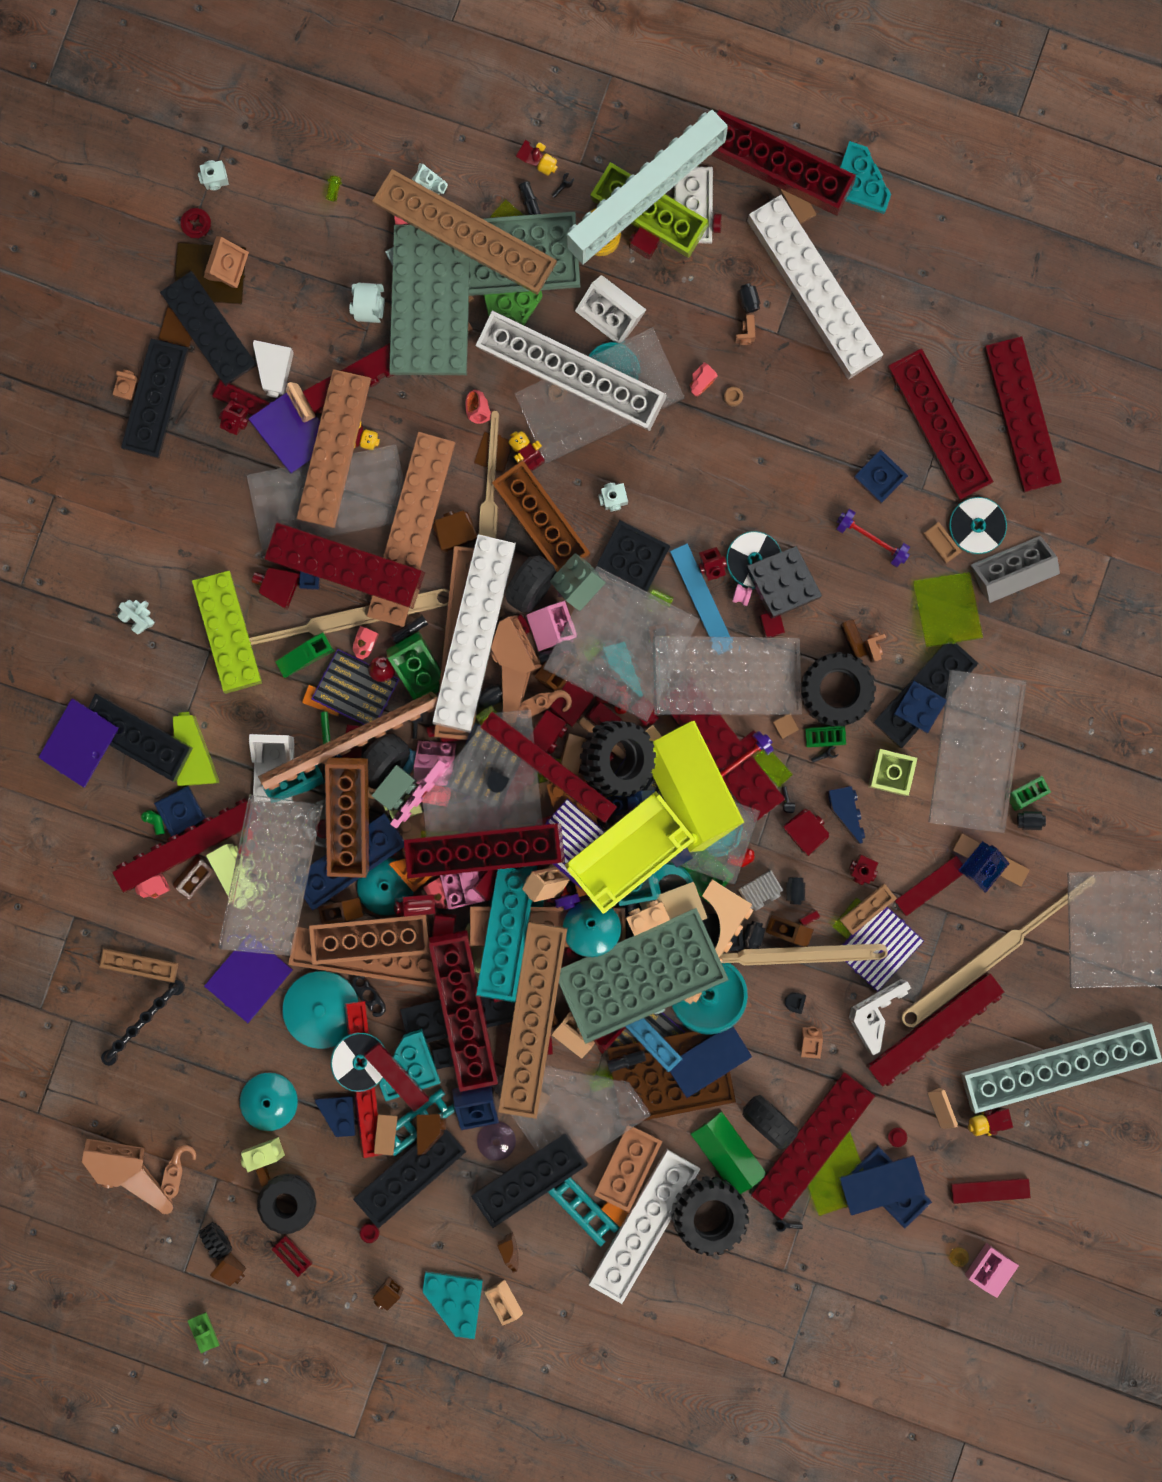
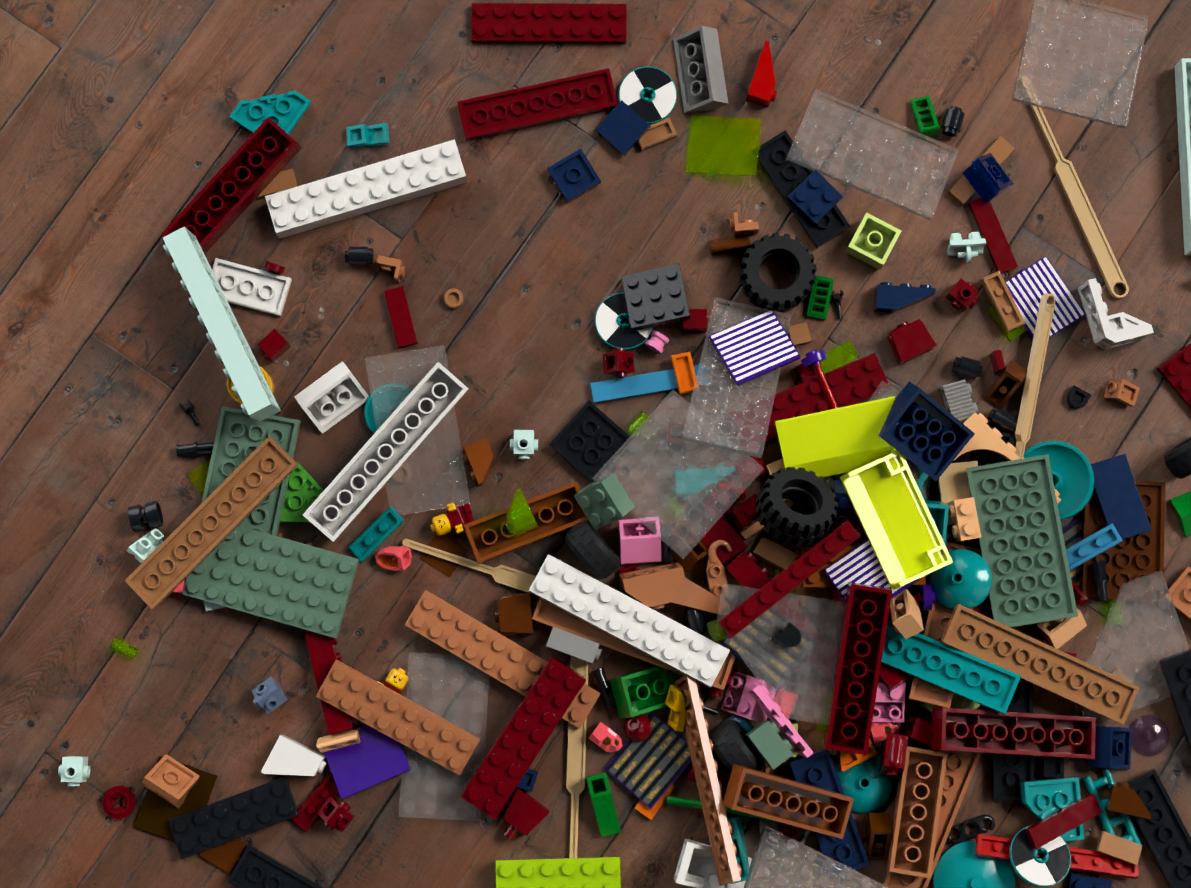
camera: 75 degrees left, 5 degrees down
(324, 328) = (269, 695): none -> sand blue brick
(367, 302) = (254, 642): light aqua brick -> none
(411, 697) = (676, 702): none -> yellow slope
(438, 589) = (573, 645): none -> light grey brick
(455, 170) = (145, 516): none -> black wheel
(495, 385) = (376, 534): none -> teal tile
(533, 156) = (151, 434): piece -> none
(544, 508) = (519, 515): none -> clear neon green slope
(588, 461) = (480, 458): none -> dark orange slope
(665, 219) = (257, 316): lime brick -> none
(702, 352) = (400, 317): none -> dark red tile
(702, 379) = (428, 324): coral rock -> none
(718, 857) = (924, 431): none -> dark blue slope
(721, 626) = (684, 372): none -> orange tile
(759, 685) = (754, 347): none -> piece
(788, 806) = (881, 352): black hand -> none
(867, 275) = (367, 135): none -> teal slope
(899, 554) = (657, 177): dark purple axle -> none
(910, 862) = (966, 248): none -> light aqua hips
(935, 1028) = (1136, 267): dark red brick -> none
(939, 510) = (623, 127): none -> dark blue tile
(1018, 630) = (763, 81): none -> red slope

